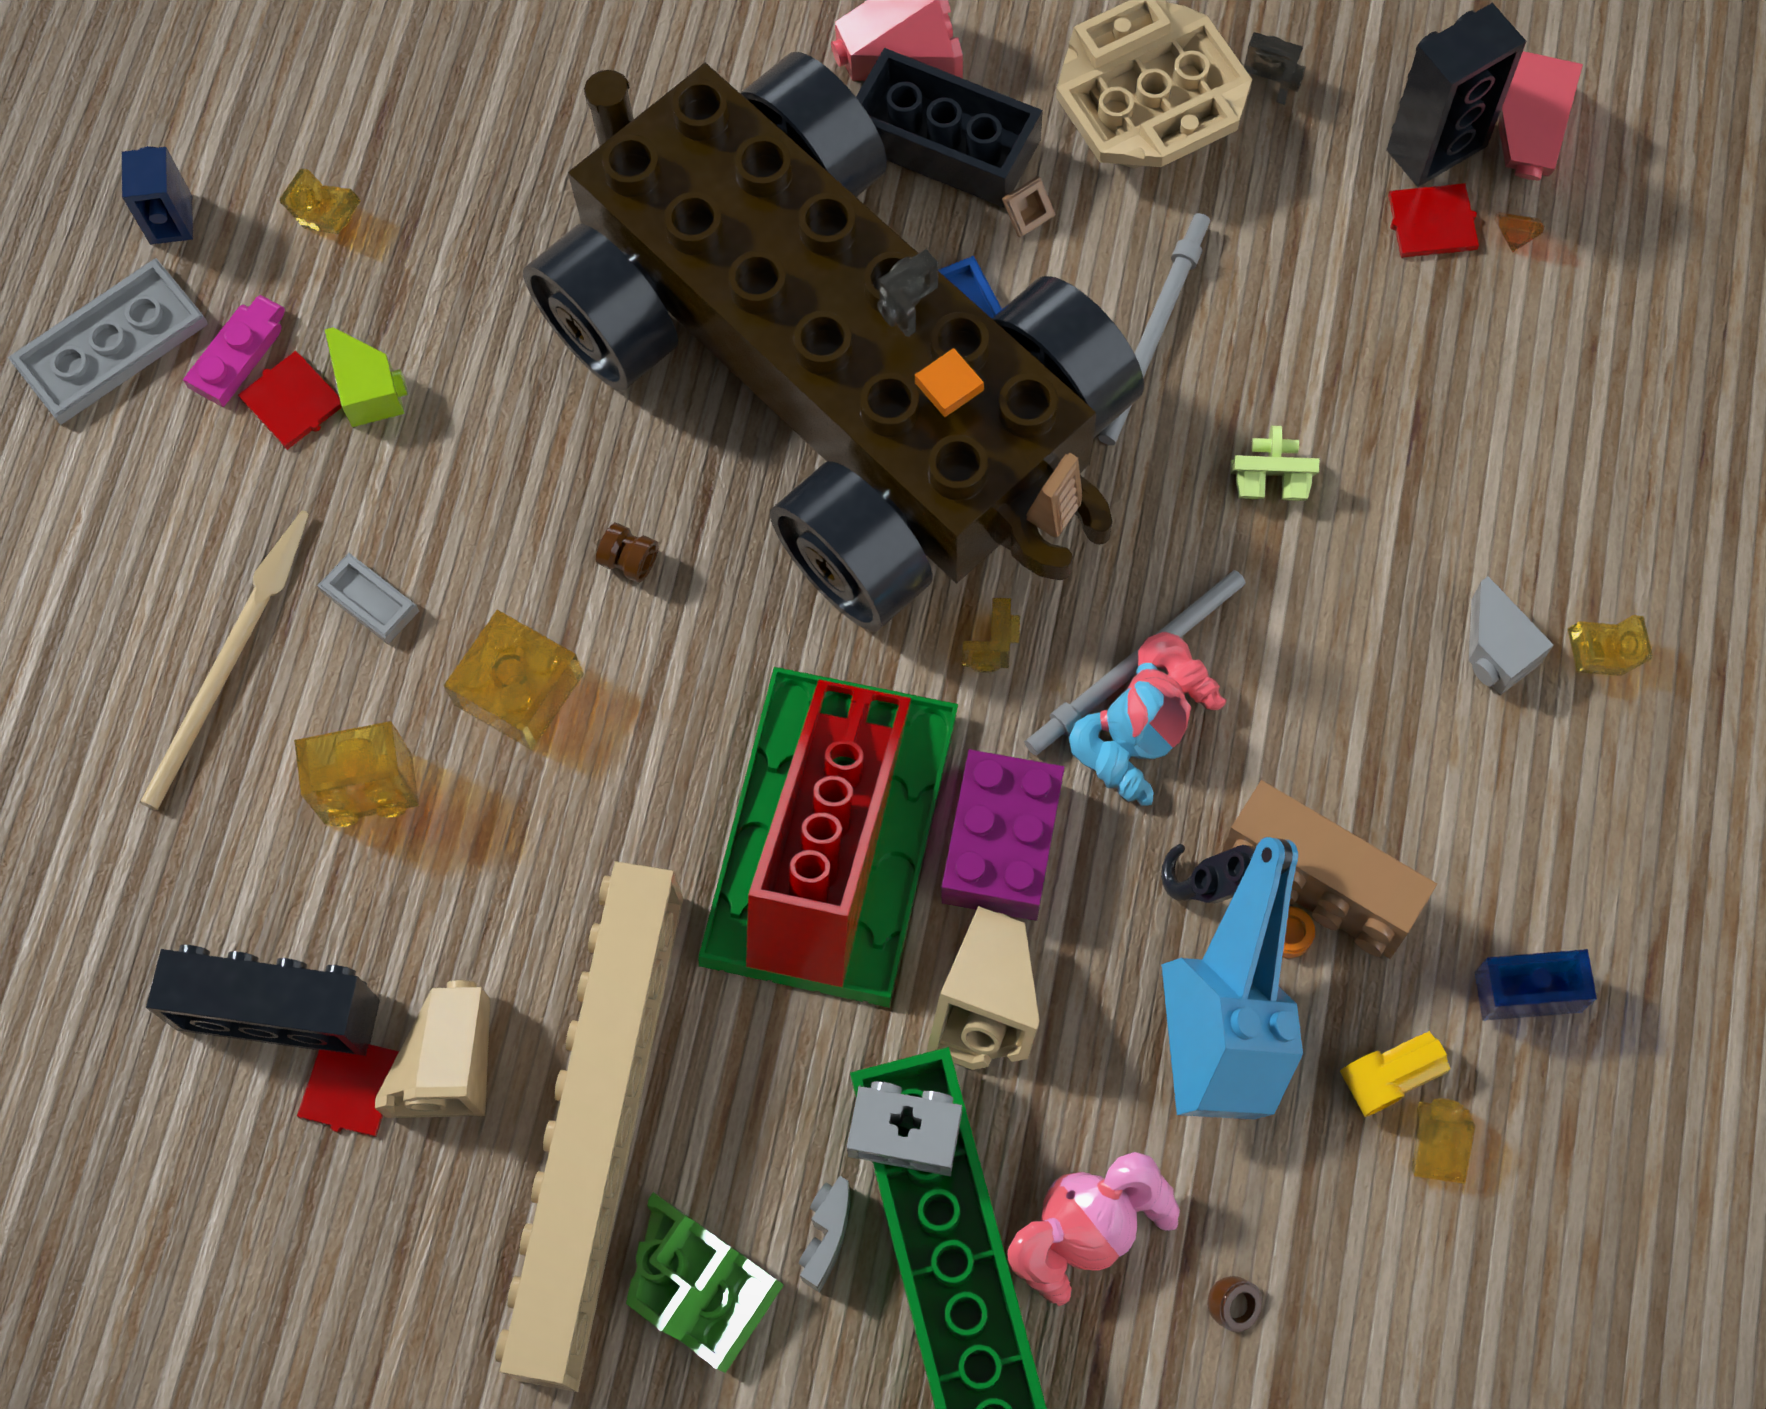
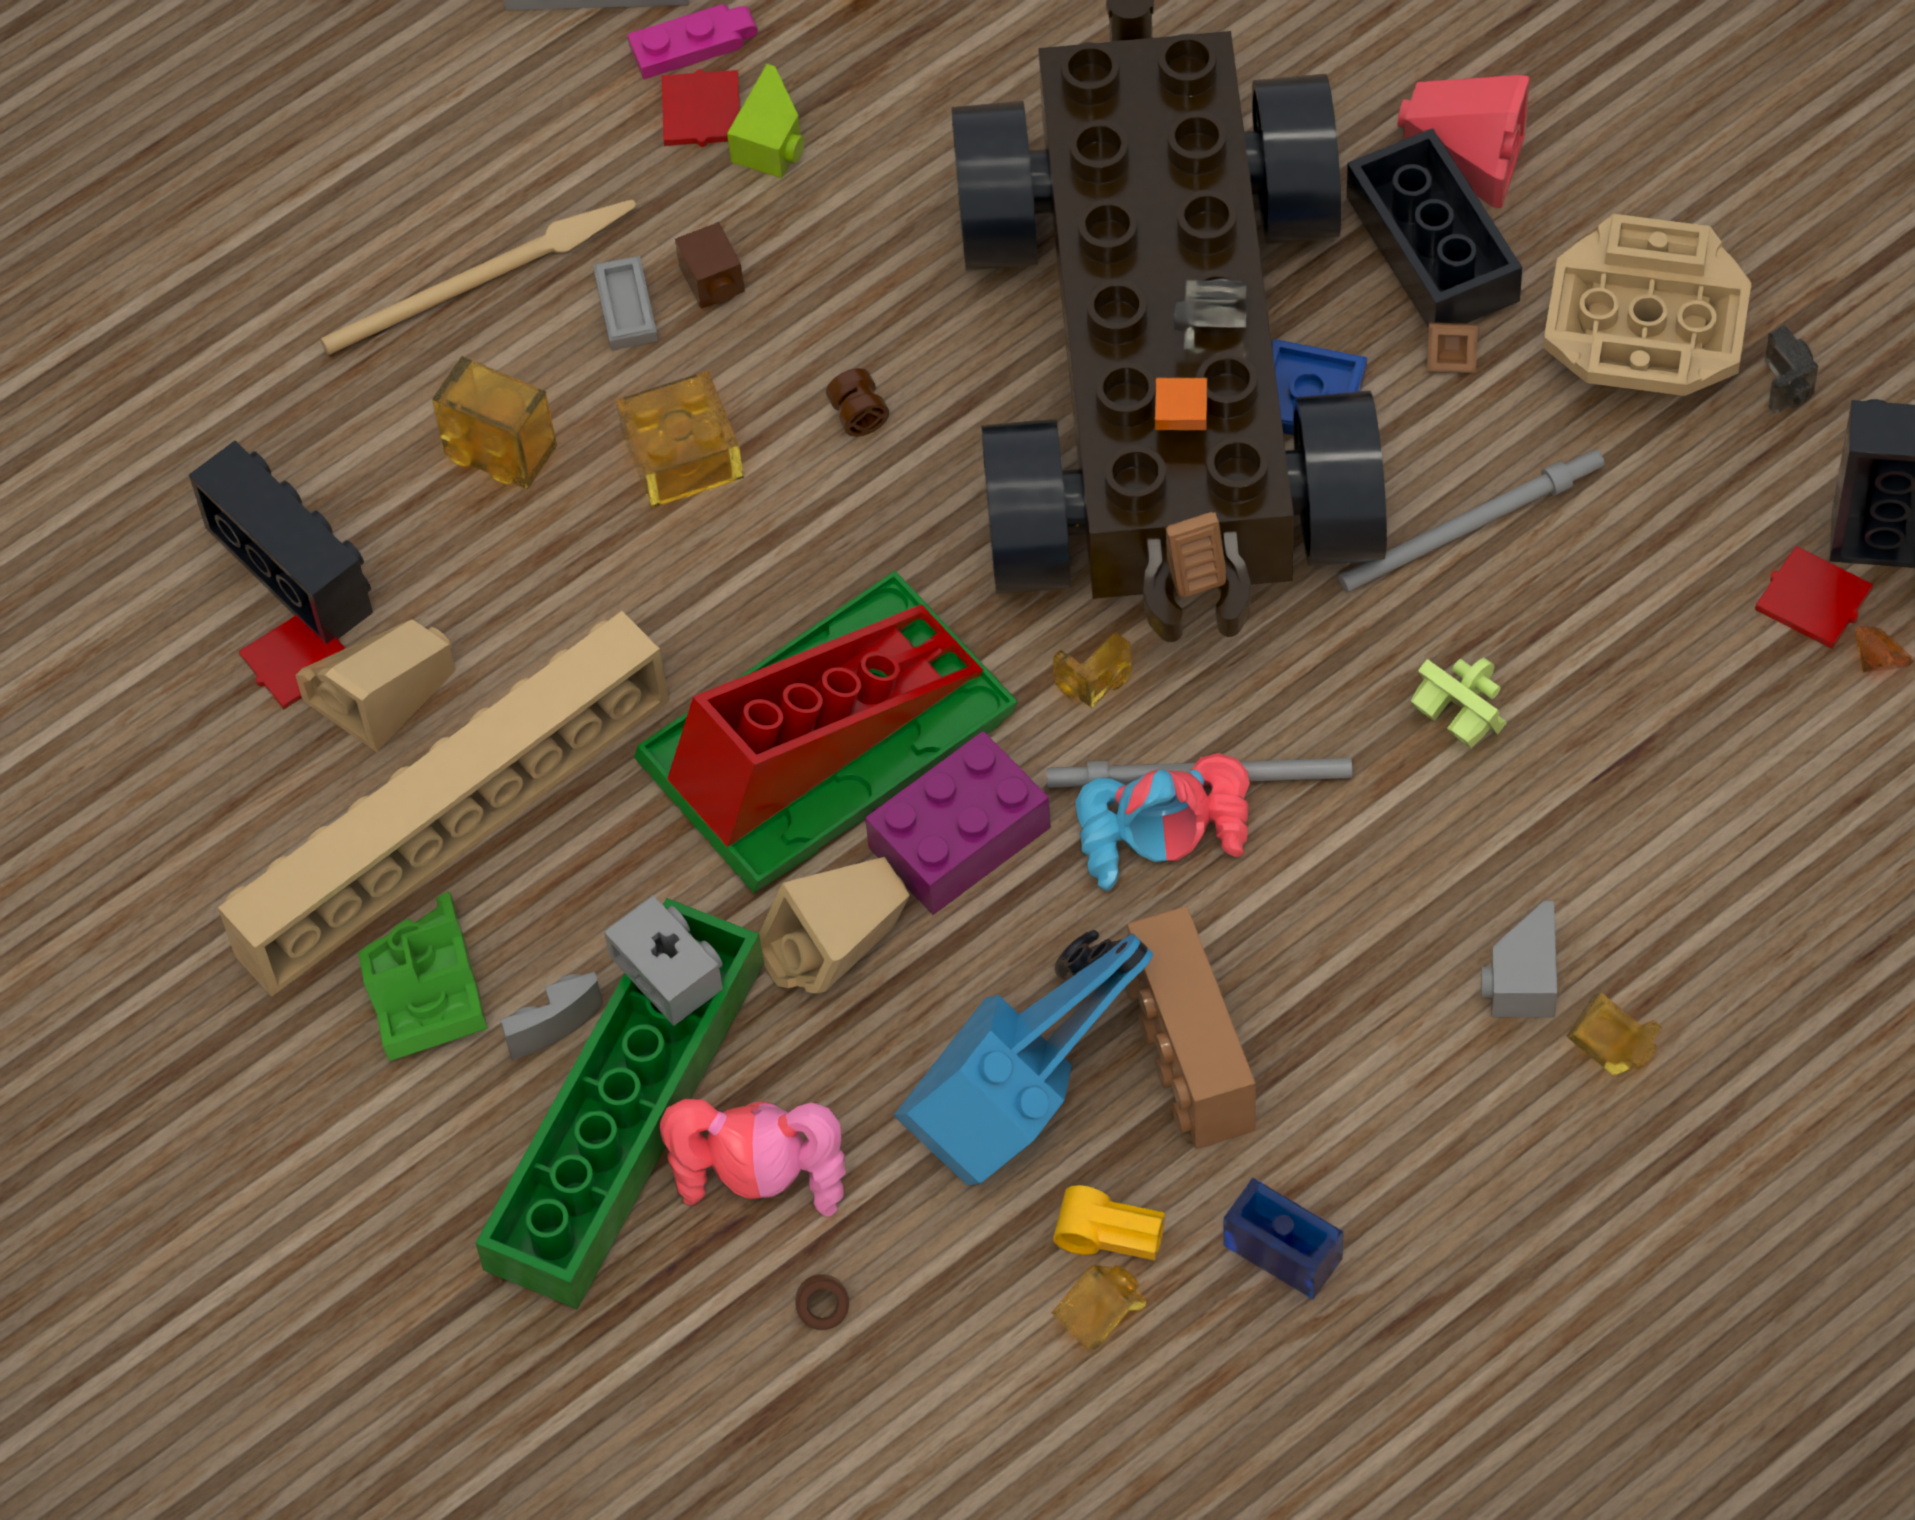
camera: 40 degrees right, 10 degrees down
(414, 522) = (710, 265): none -> reddish brown brick
(1299, 933) = (1128, 1066): orange tile -> none

